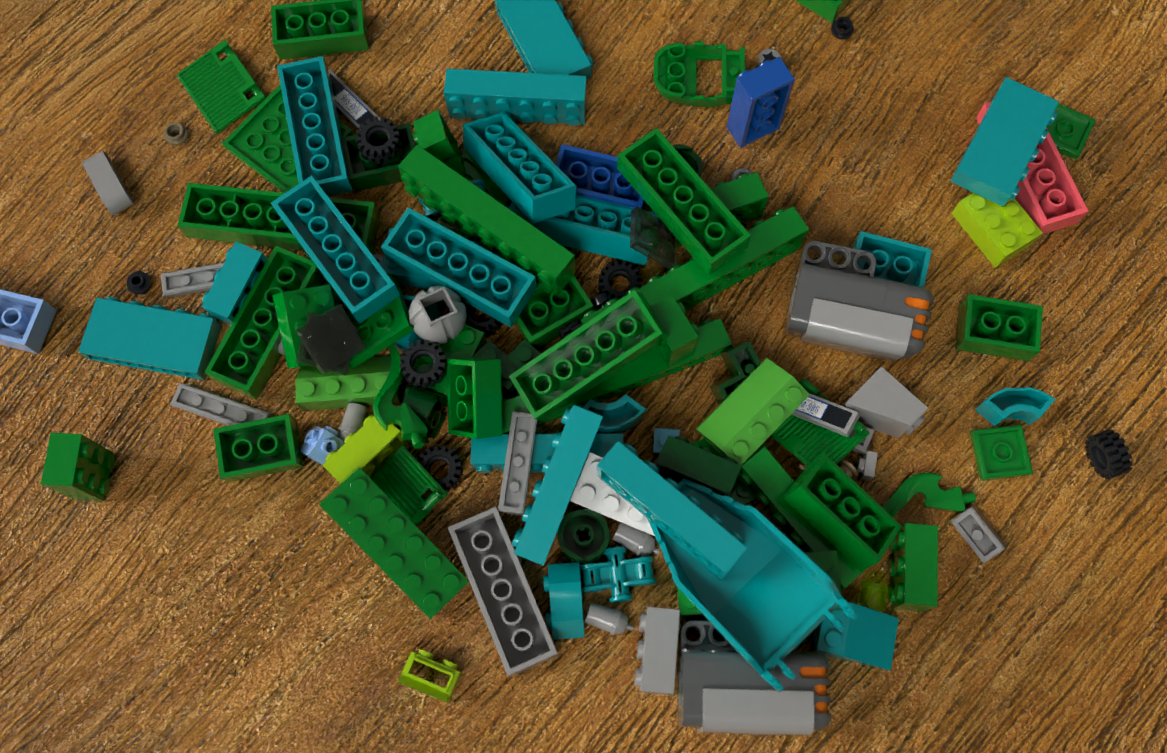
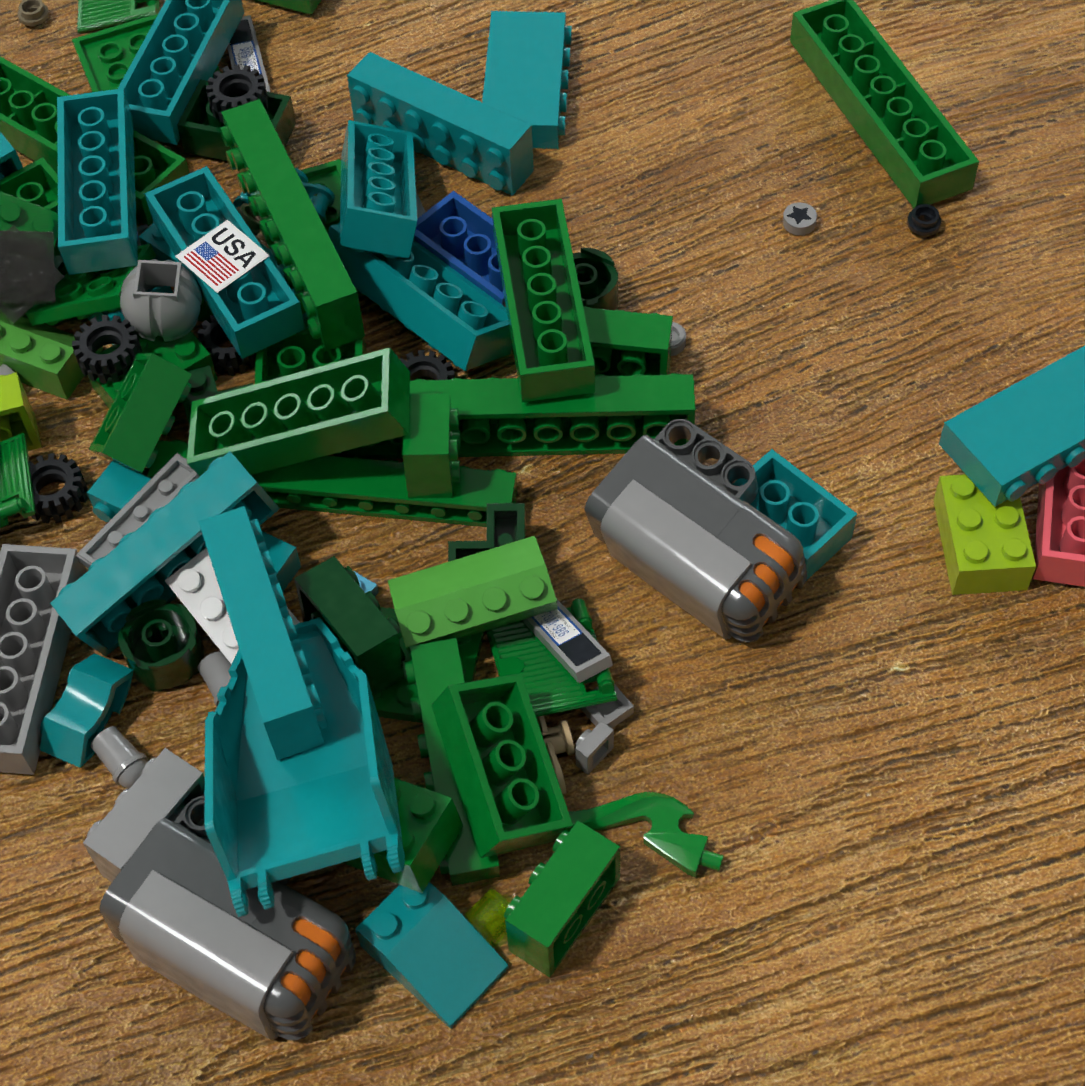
camera: 30 degrees right, 15 degrees down
(386, 413) = (38, 391): green piece -> none
(428, 408) = (69, 410): dark green brick -> none
(437, 139) = (307, 130): green piece -> none
(464, 268) = (222, 256): none -> sticker
(618, 415) = (304, 524): teal brick -> none
(628, 574) = (168, 712): teal axle -> none
(652, 238) = (479, 329): clear smoke plate -> none
(676, 72) = (670, 177): green slope -> none
(759, 101) = (731, 239): blue brick -> none
(887, 405) = (660, 675): light grey slope -> none
(978, 533) = (699, 915): light grey slope -> none
(999, 327) = (896, 660): green brick -> none
(1001, 452) = (801, 828): green tile -> none
(1015, 403) = (855, 766): teal brick -> none
(1108, 454) = (951, 897): black tyre -> none

